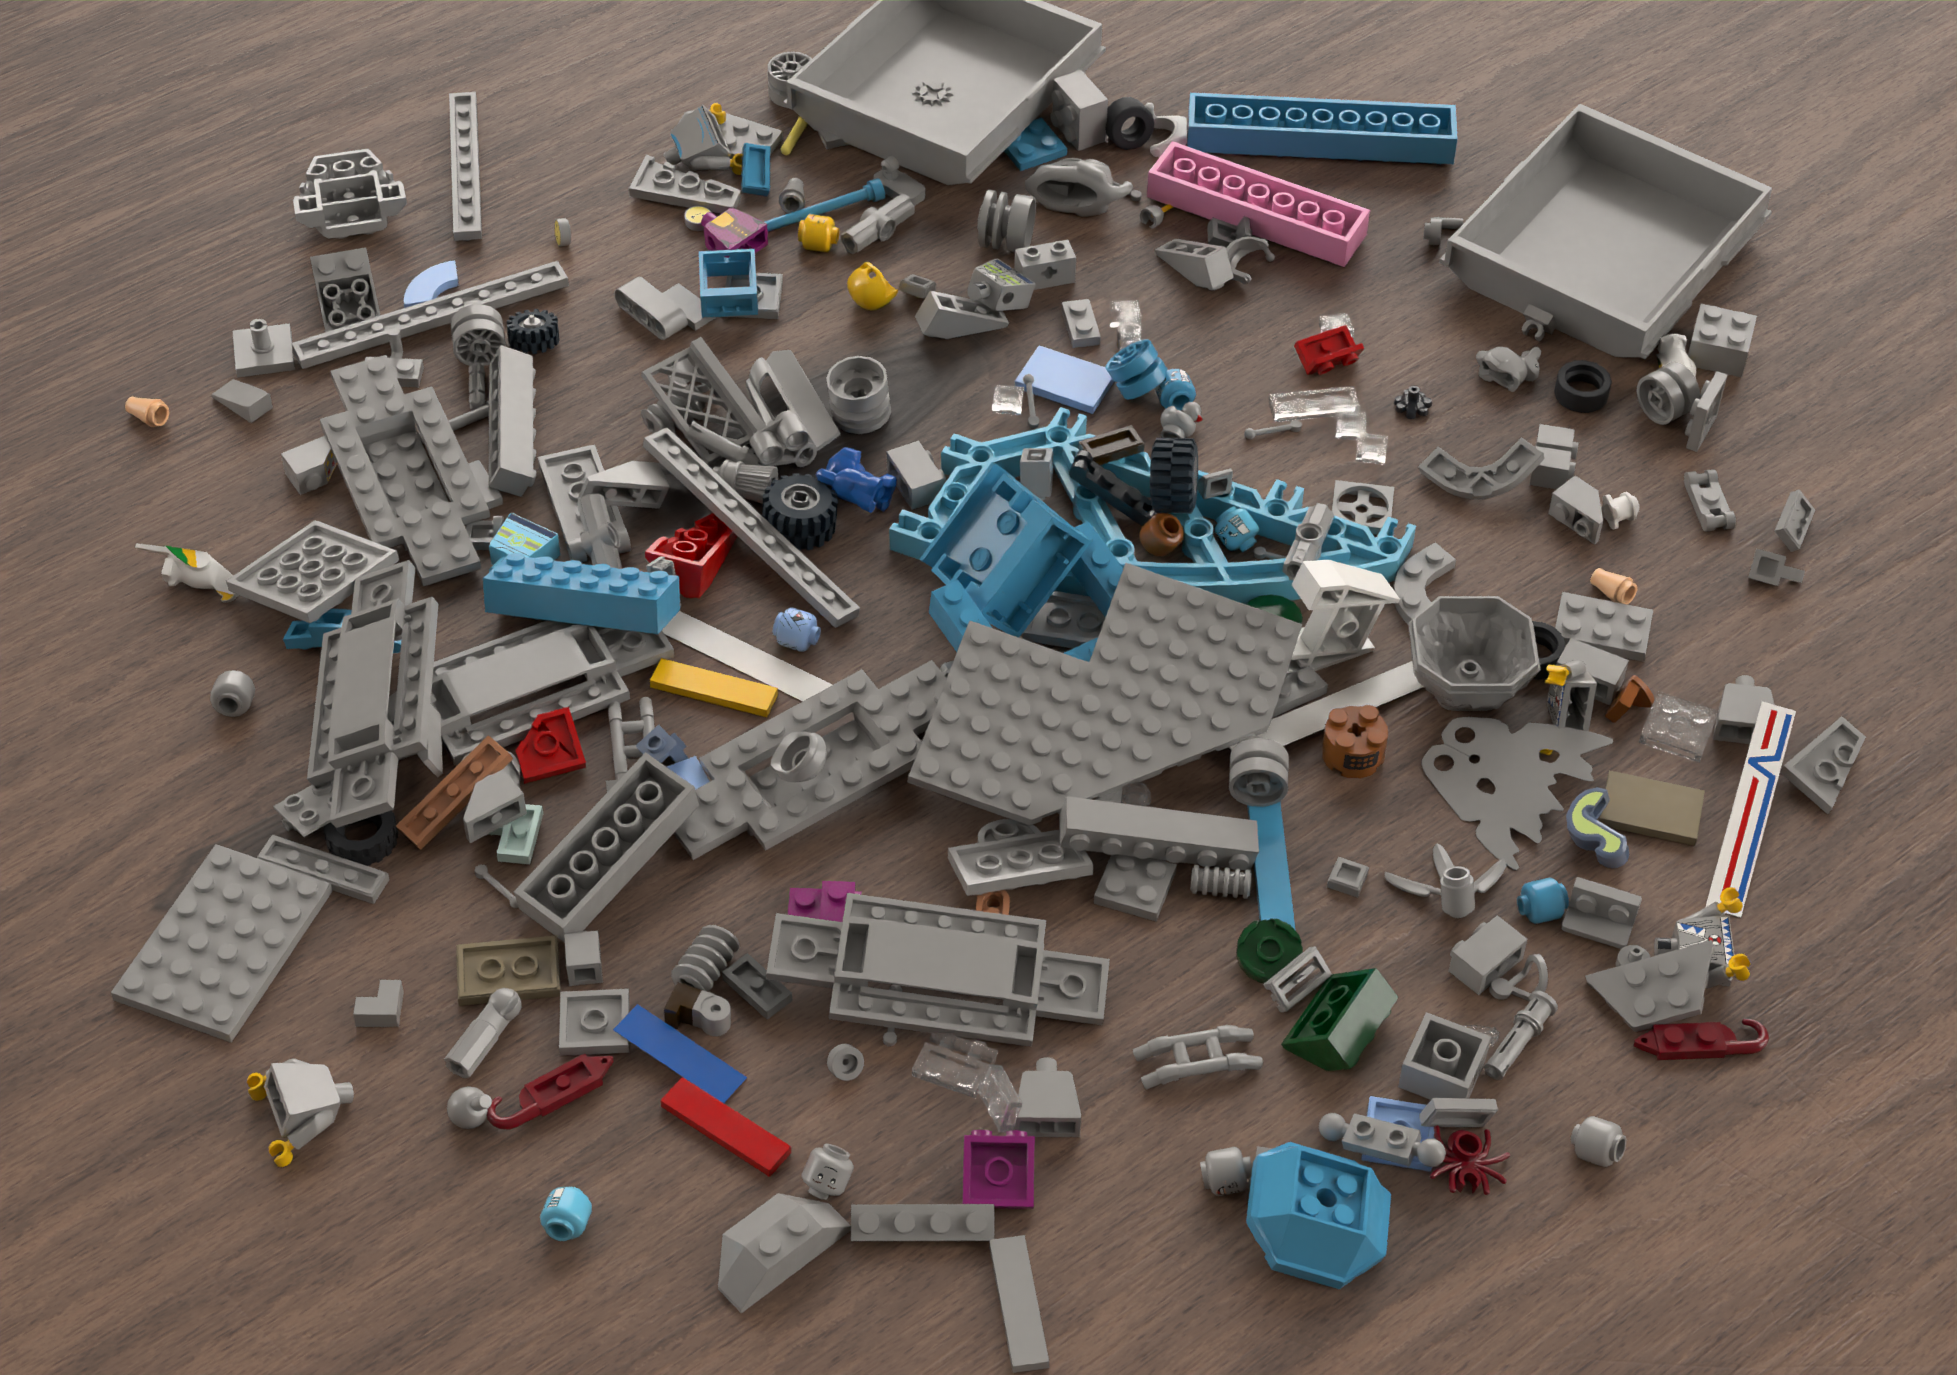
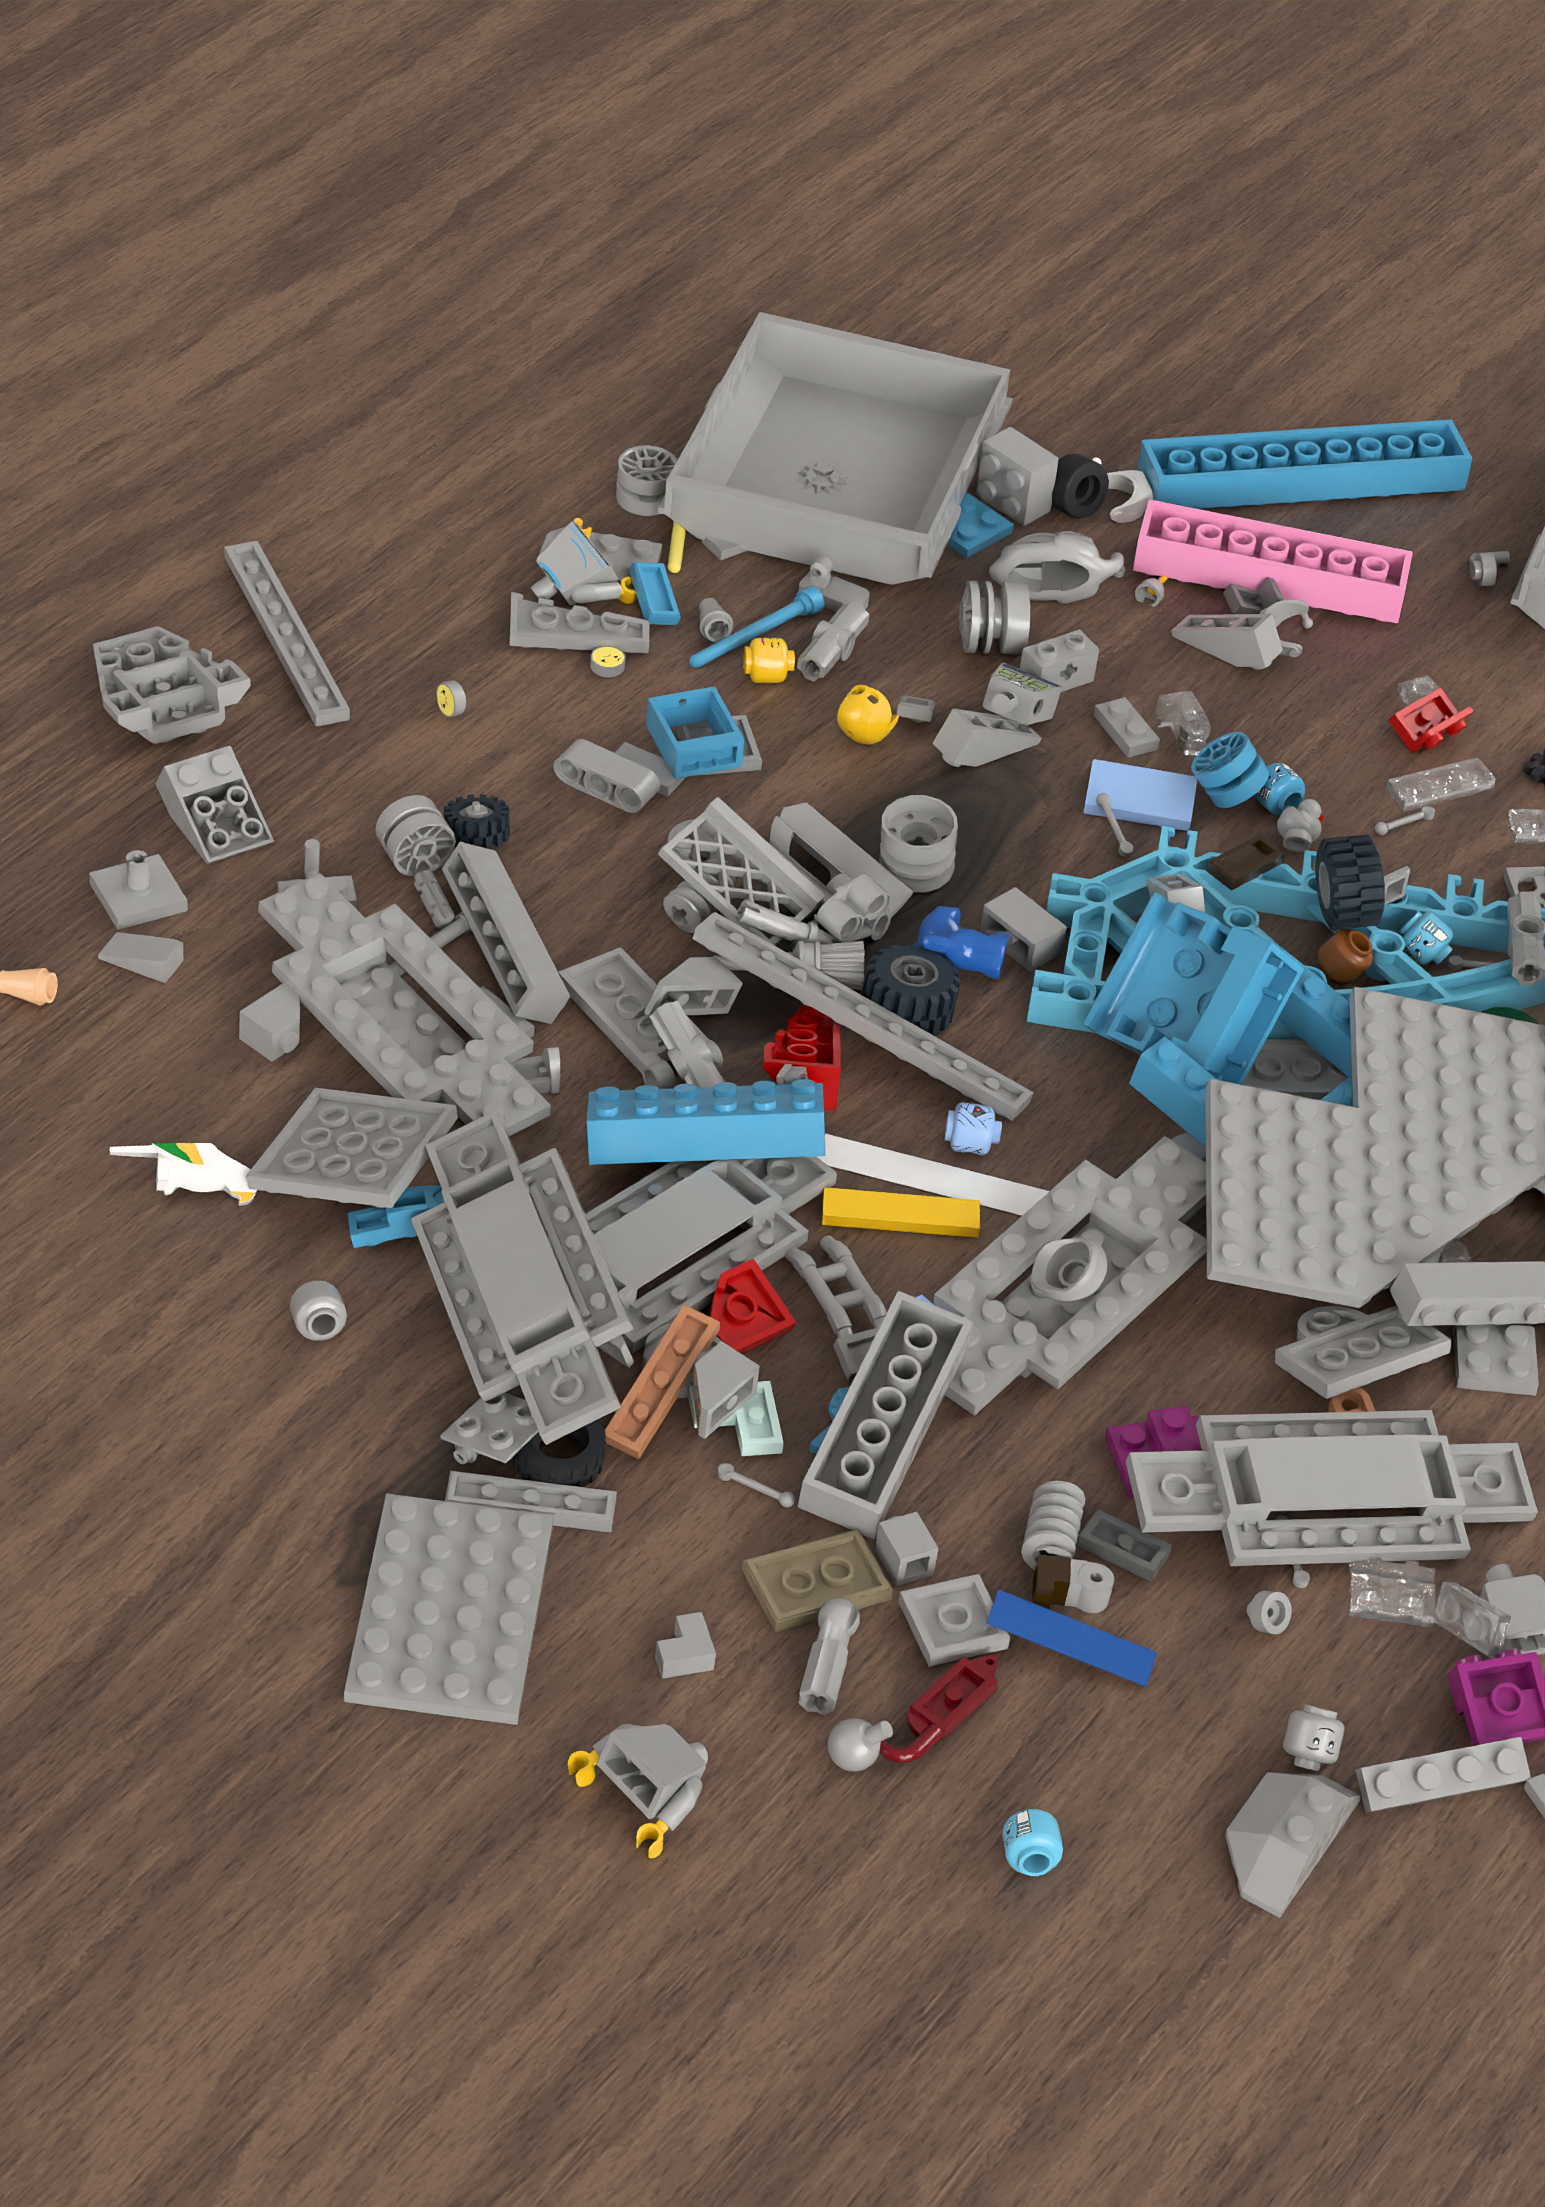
camera: 20 degrees left, 5 degrees down
(428, 314) = (330, 820): light grey plate -> none
(431, 283) = (311, 784): light blue tile -> none
(523, 537) = (585, 1071): medium azure torso -> none
(661, 745) = (881, 1286): sand blue bracket -> none
(726, 1126) = (1163, 1711): red tile -> none
(734, 231) = (664, 671): magenta torso -> none
(1008, 400) = (1088, 827): clear plate -> none
(1110, 488) = (1264, 908): black plate -> none
(1350, 424) = (1492, 802): clear plate -> none

